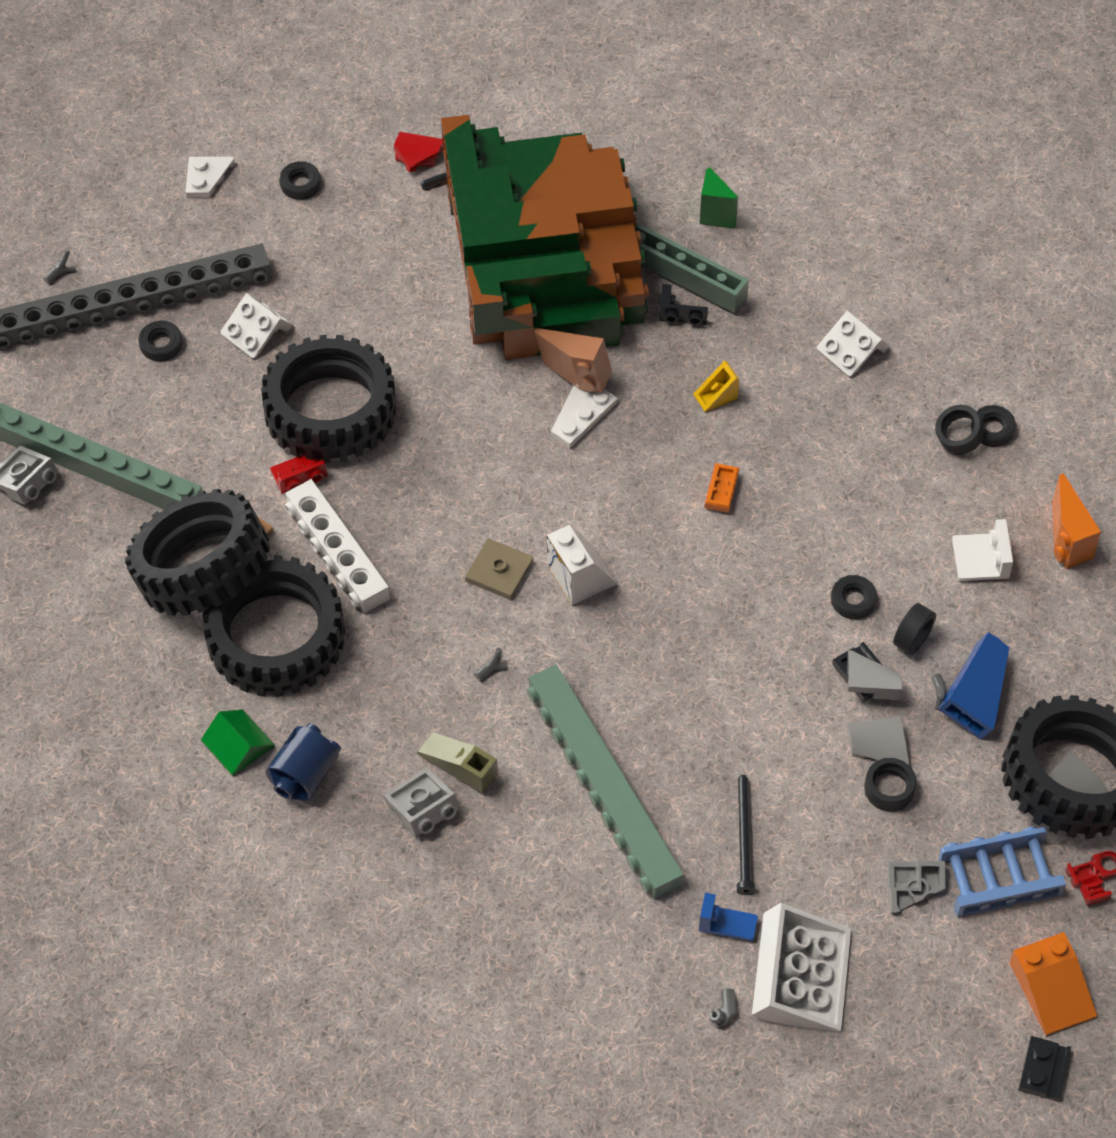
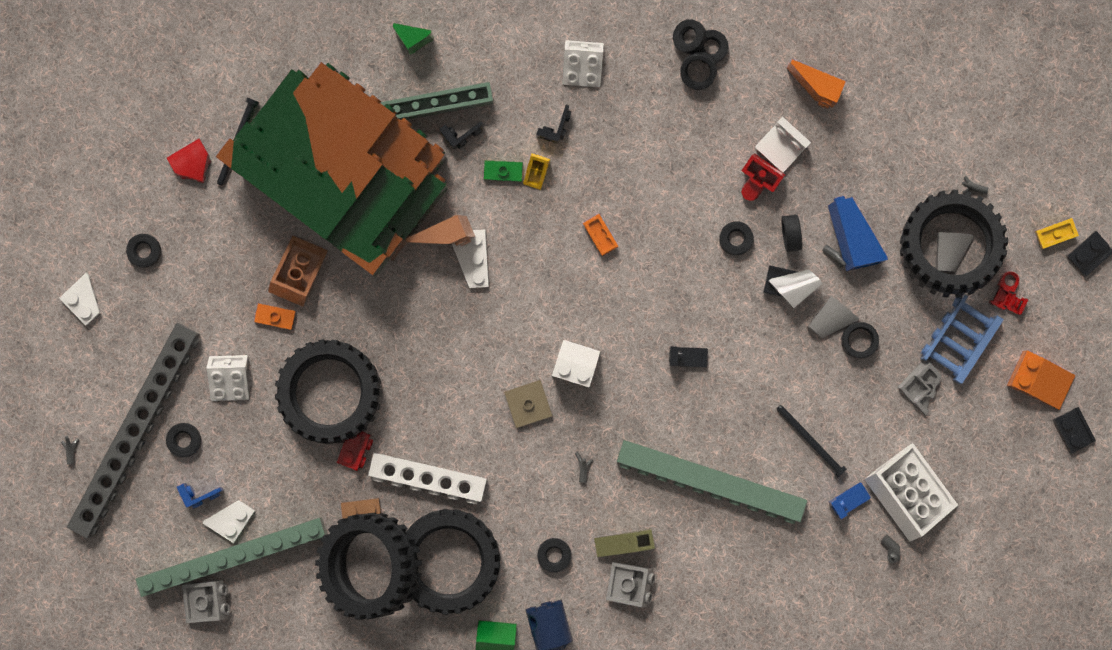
camera: 45 degrees left, 30 degrees up
(113, 391) = (187, 493): none -> blue bracket
(124, 434) = (230, 520): none -> white wing
(352, 315) = (275, 316): none -> orange plate
(376, 700) = (554, 543): none -> black tyre
(410, 294) = (297, 271): none -> nougat slope
(685, 368) = (503, 171): none -> green plate
(693, 652) = (688, 356): none -> black bracket
(772, 377) = (548, 133): none -> black bracket
(932, 559) = (761, 176): none -> red brick
(981, 388) = (682, 28): none -> black tyre

